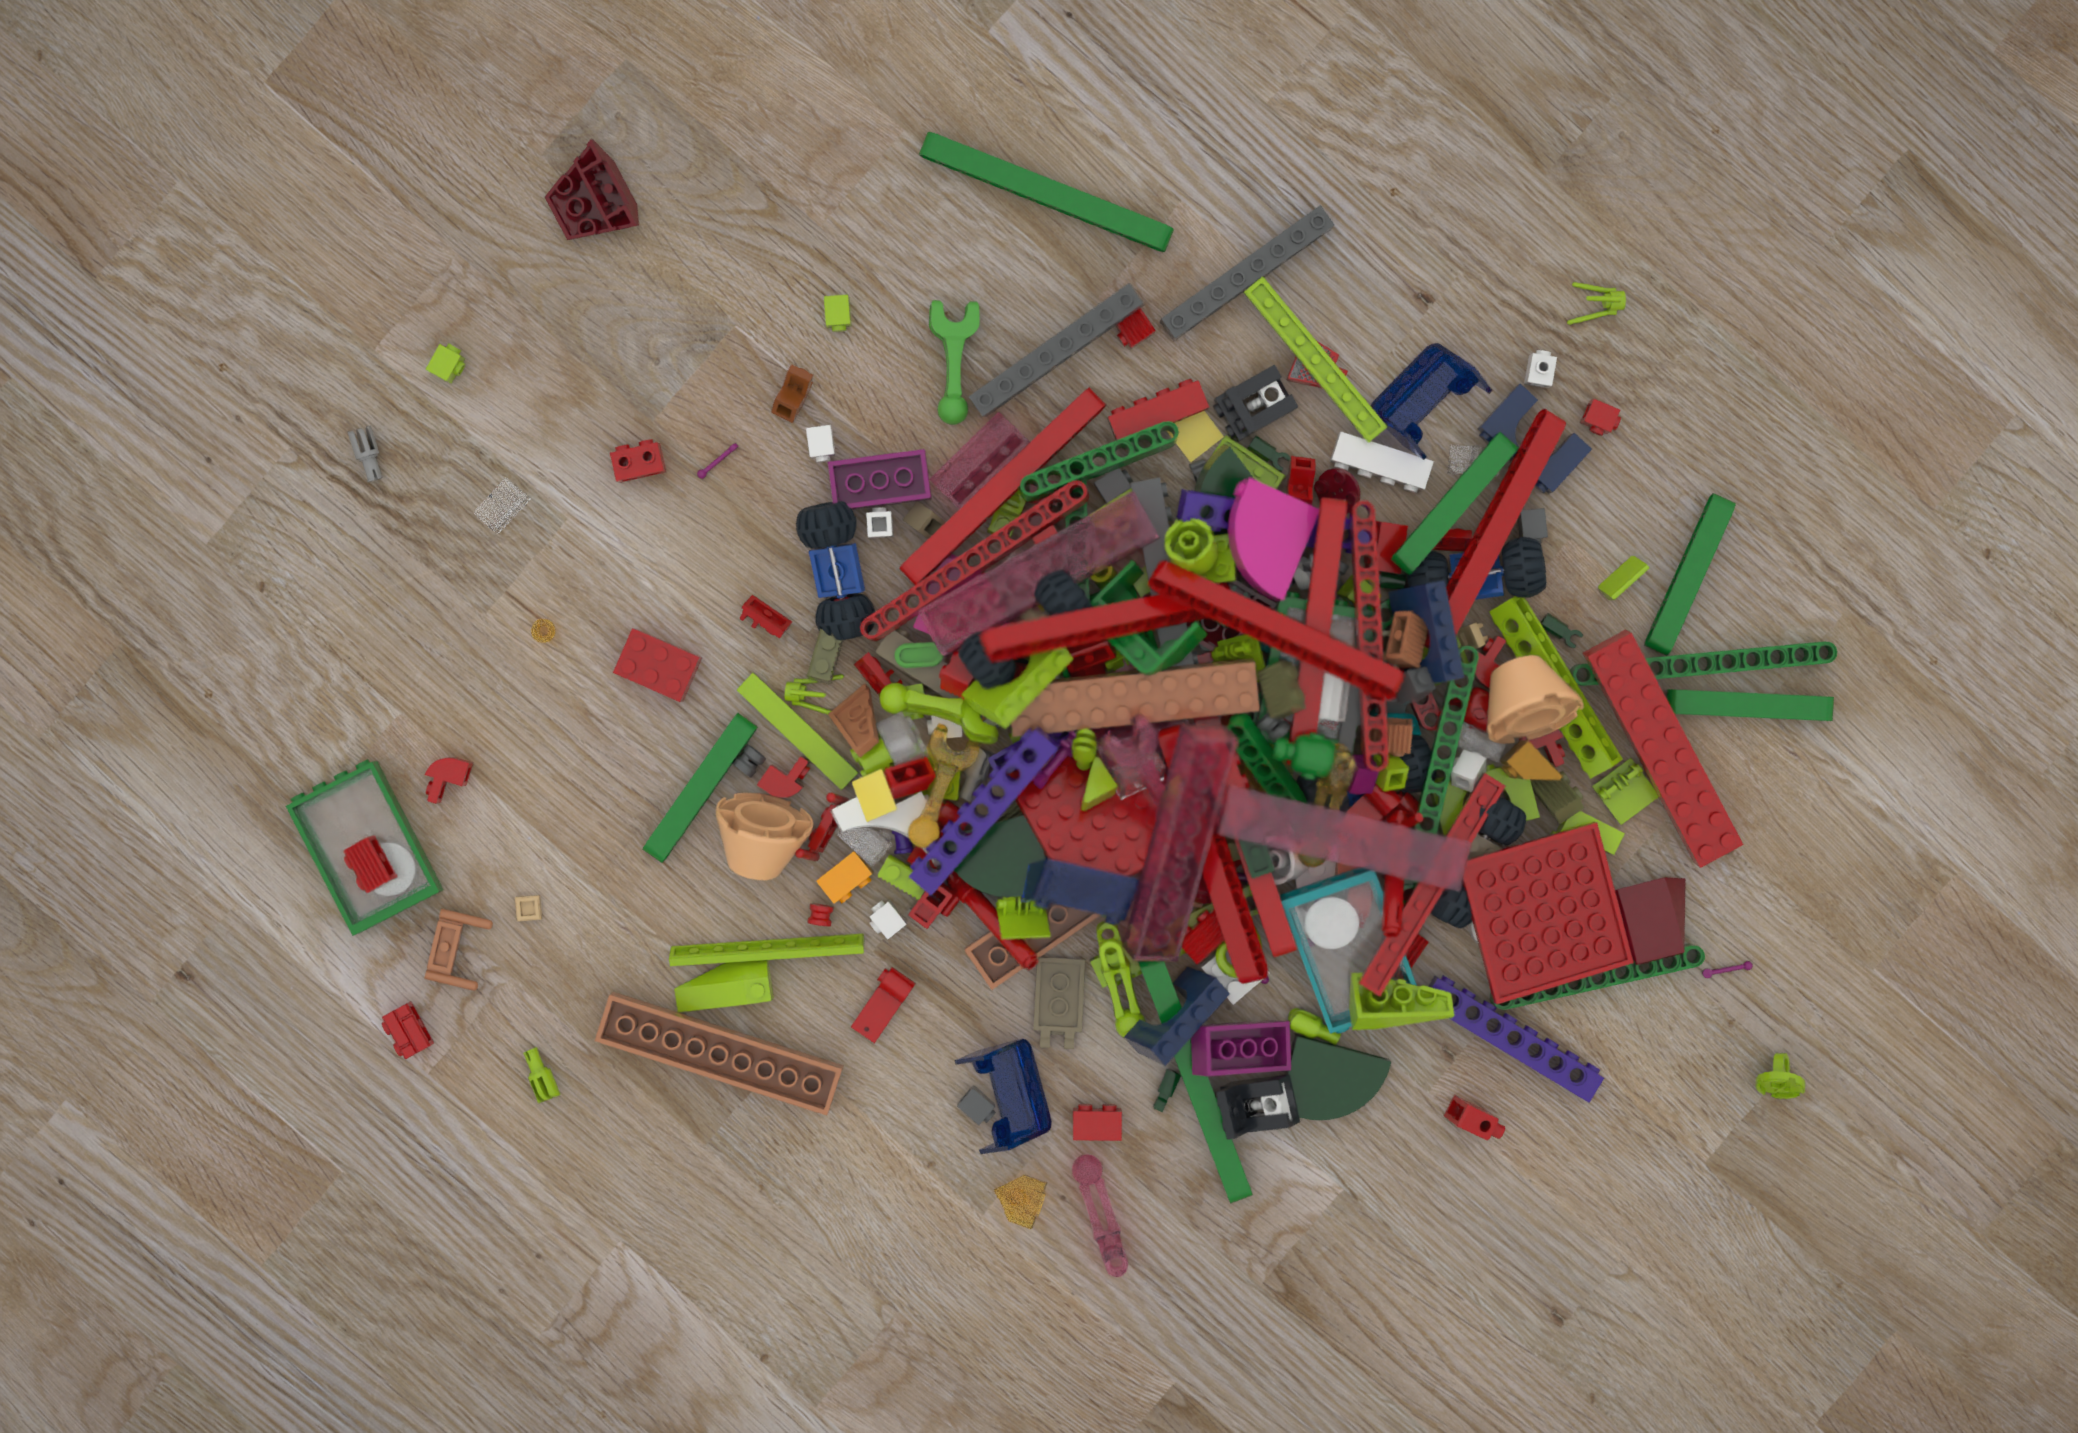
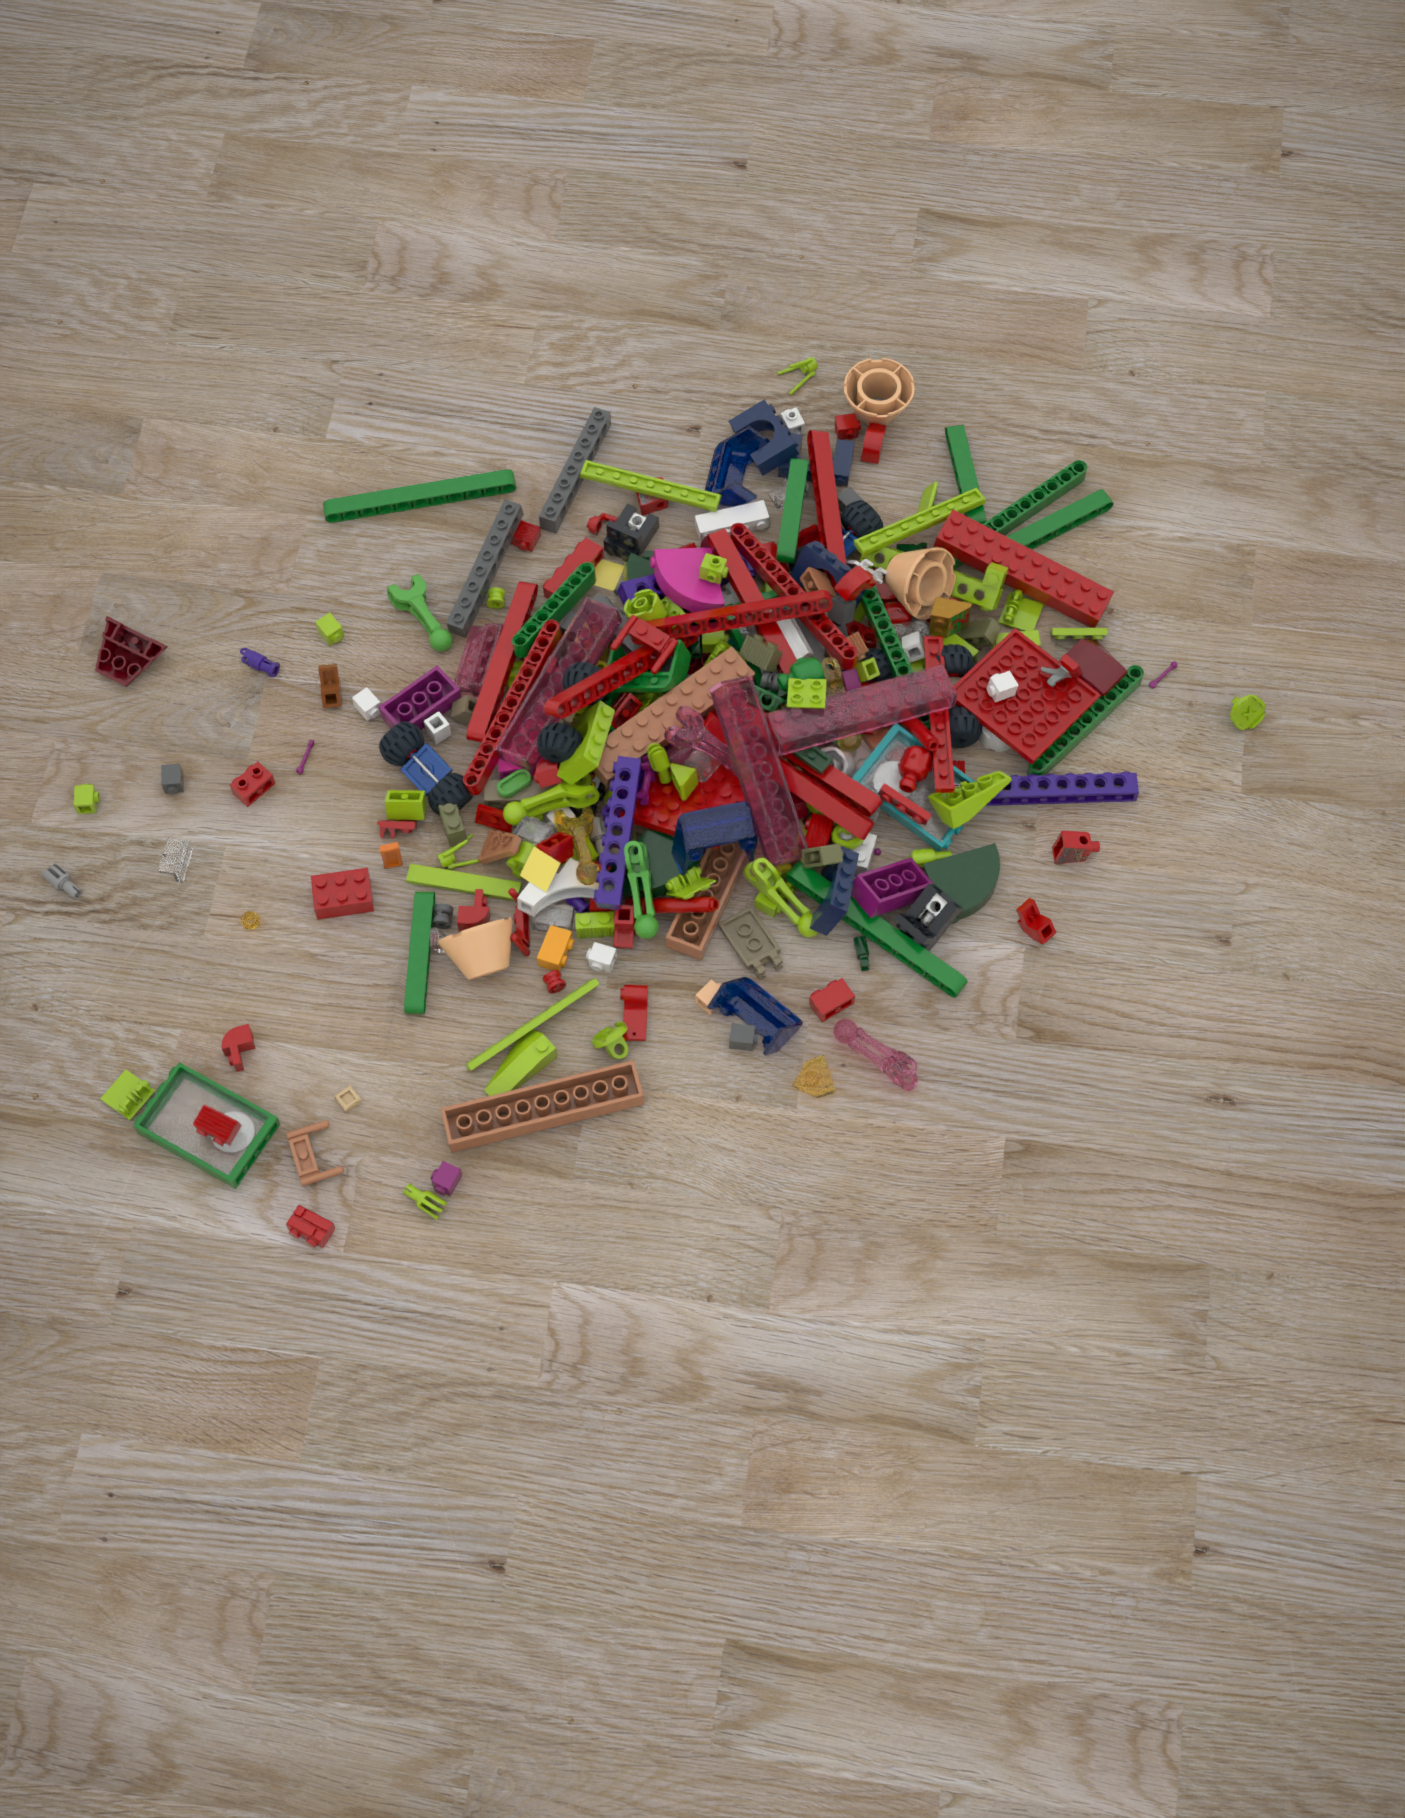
camera: 30 degrees left, 25 degrees down
(303, 757) = (128, 1094): none -> lime hinge
(554, 399) = (172, 778): none -> dark grey brick
(574, 1066) = (446, 1178): none -> magenta brick
(727, 786) = (435, 935): none -> clear tile
(733, 656) = (391, 855): none -> orange tile
(734, 305) = (259, 662): none -> dark purple piece
(788, 601) = (405, 805): none -> lime brick
(837, 1021) = (610, 1037): none -> lime tile
(973, 1037) = (706, 994): none -> light nougat brick
(977, 864) = (646, 925): none -> bright green piece
(1048, 391) = (495, 598): none -> lime wheel
(1166, 599) = (650, 637): none -> red plate
(1184, 980) = (822, 856): none -> olive brick
(1223, 362) = (595, 523): none -> red plate
(1290, 549) = (713, 568): none -> lime brick
(1291, 788) = (806, 693): none -> lime hinge
(1317, 968) = (904, 805): none -> red plate
(1358, 932) = (914, 767): none -> red piece
(1370, 1178) = (1033, 923): none -> red brick
(1444, 675) = (854, 582): none -> red brick
(1478, 642) = (877, 574): none -> white flag
(1500, 408) = (779, 449): none -> dark blue arch
(1524, 896) = (1002, 686): none -> white brick
(1588, 613) = (918, 522): none -> lime tile
(1615, 462) = (873, 443): none -> red brick
(1616, 922) = (1068, 669): none -> piece
(1619, 747) = (995, 575): none -> lime brick
(1670, 860) = (1078, 633): none -> lime plate
(1692, 400) = (879, 380): none -> light nougat cone

